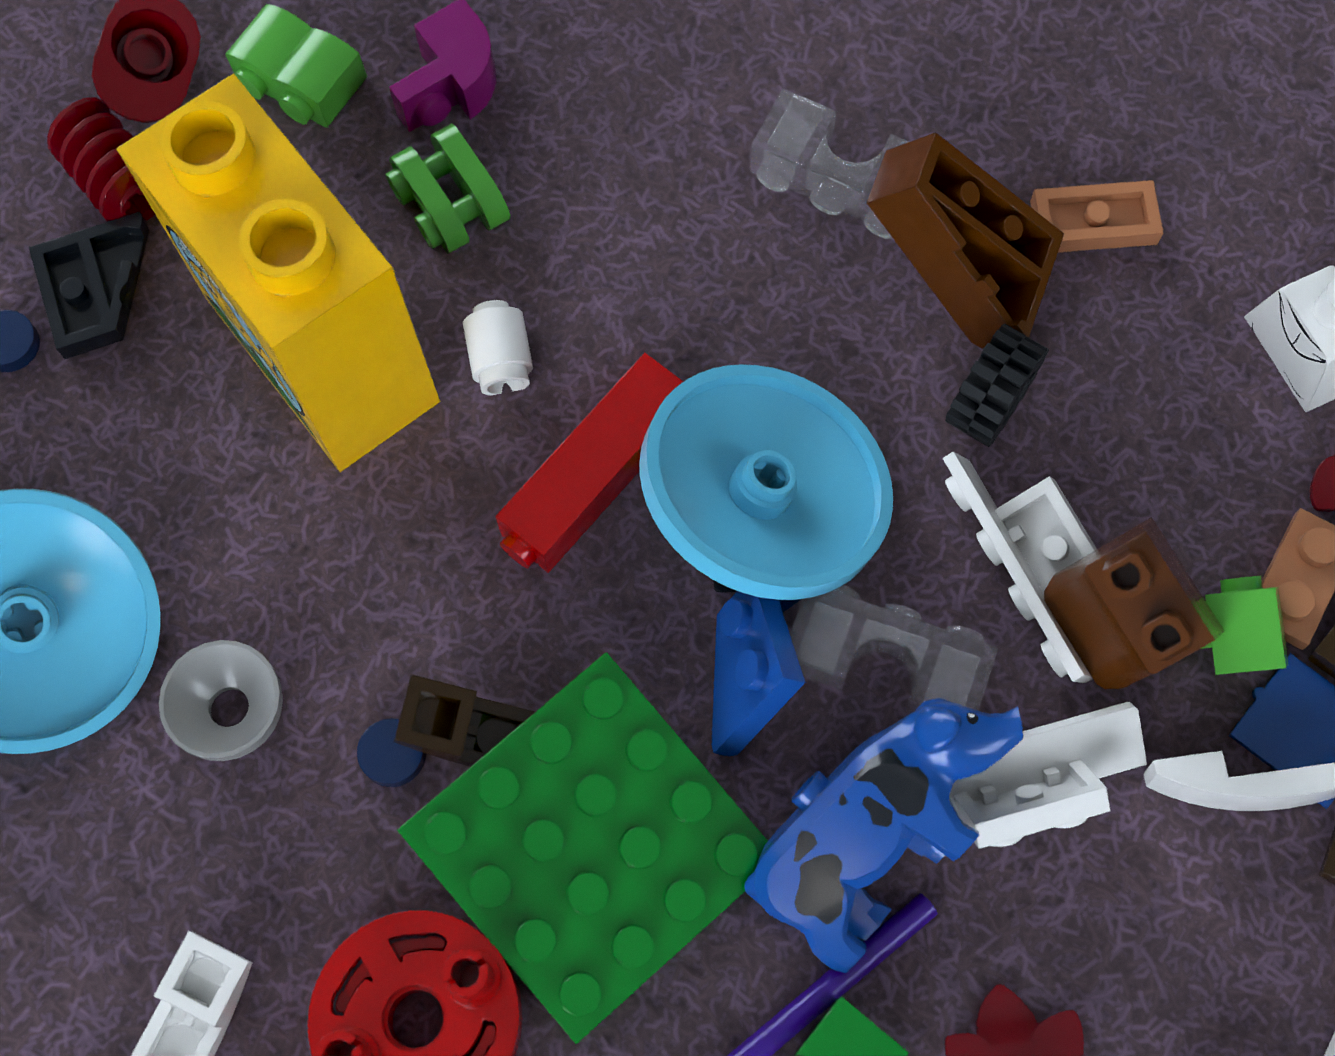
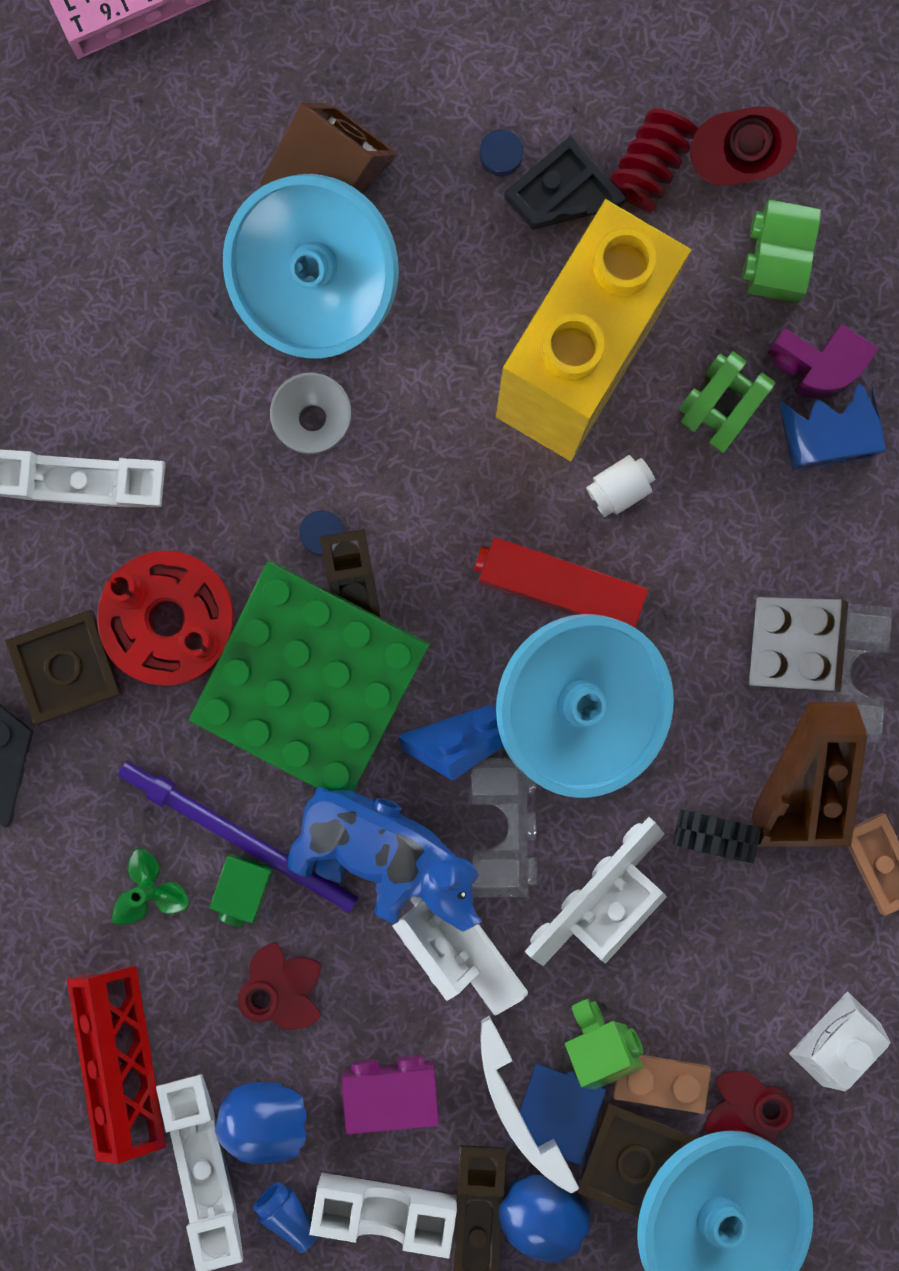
camera: 65 degrees right, 15 degrees up
(539, 86) = (834, 434): none -> blue piece
(785, 210) = (798, 643): none -> plate
(1131, 608) = (585, 978): reddish brown hips -> none
(1221, 948) = (390, 1096): none -> magenta brick

